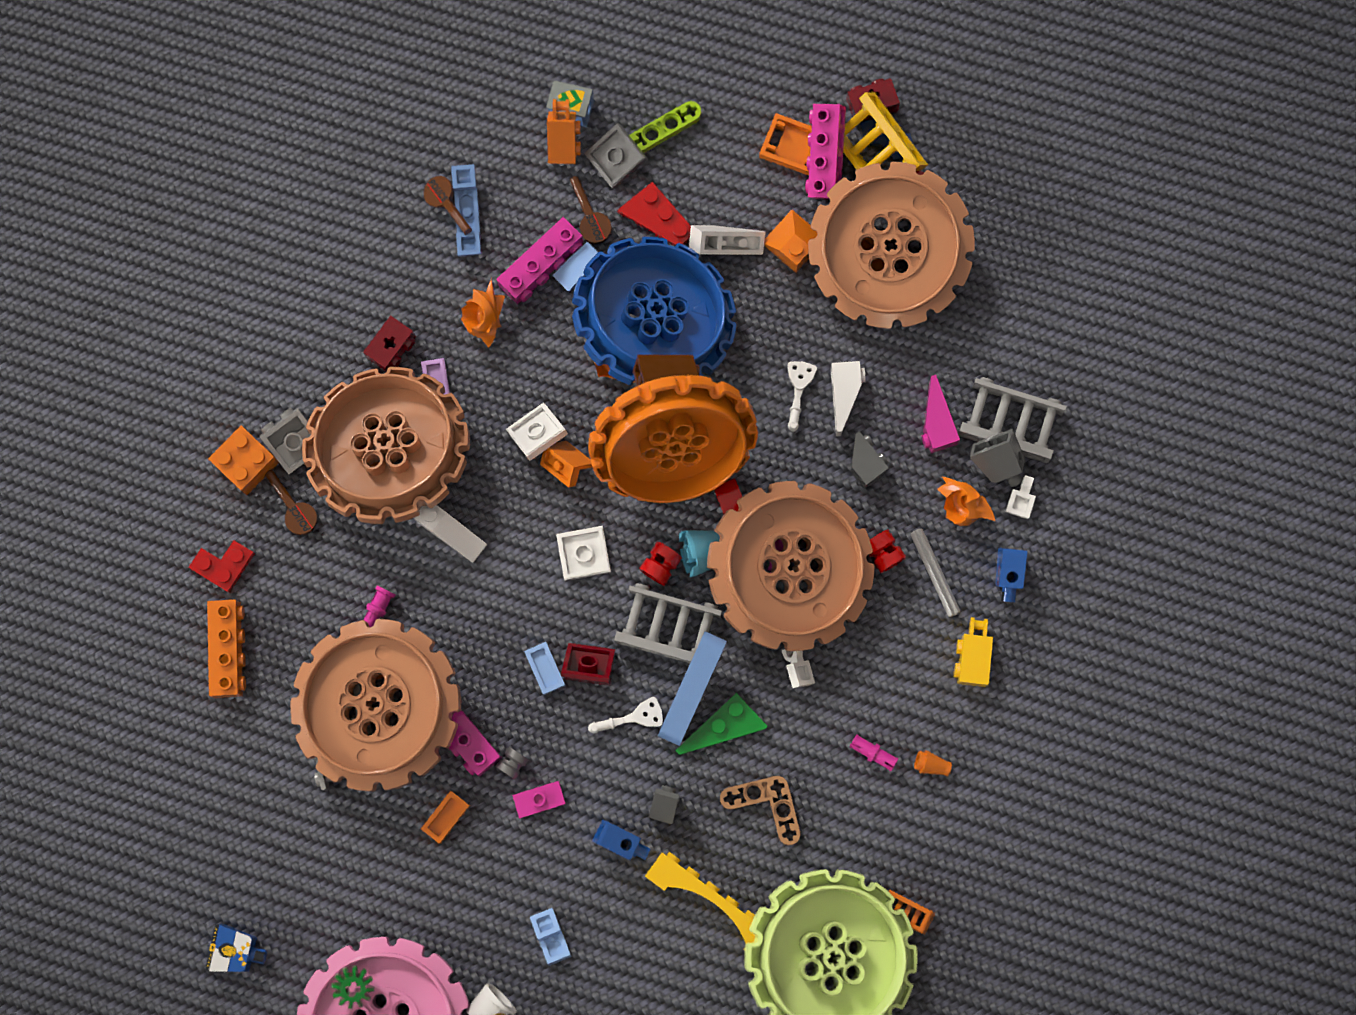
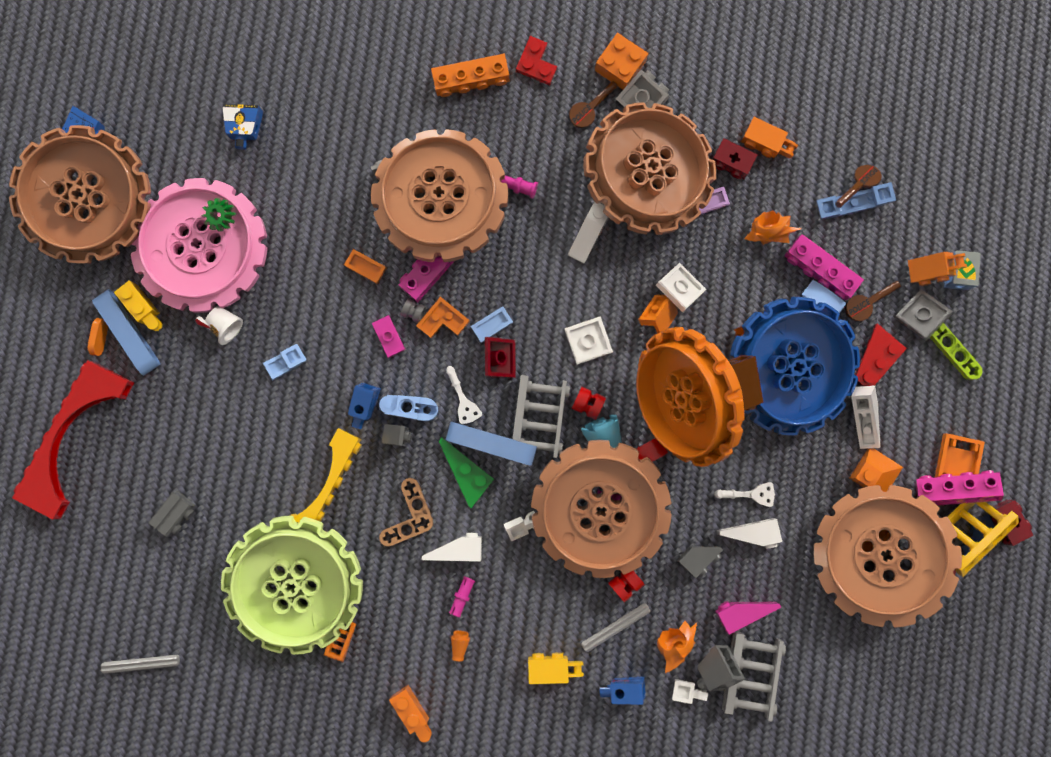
camera: 80 degrees right, 5 degrees up
(372, 301) = (768, 139): none -> orange brick
(522, 726) = (441, 314): none -> orange plate
(626, 804) = (394, 404): none -> light blue piece
(816, 743) = (462, 549): none -> white slope
(1006, 833) = (411, 713): none -> orange brick

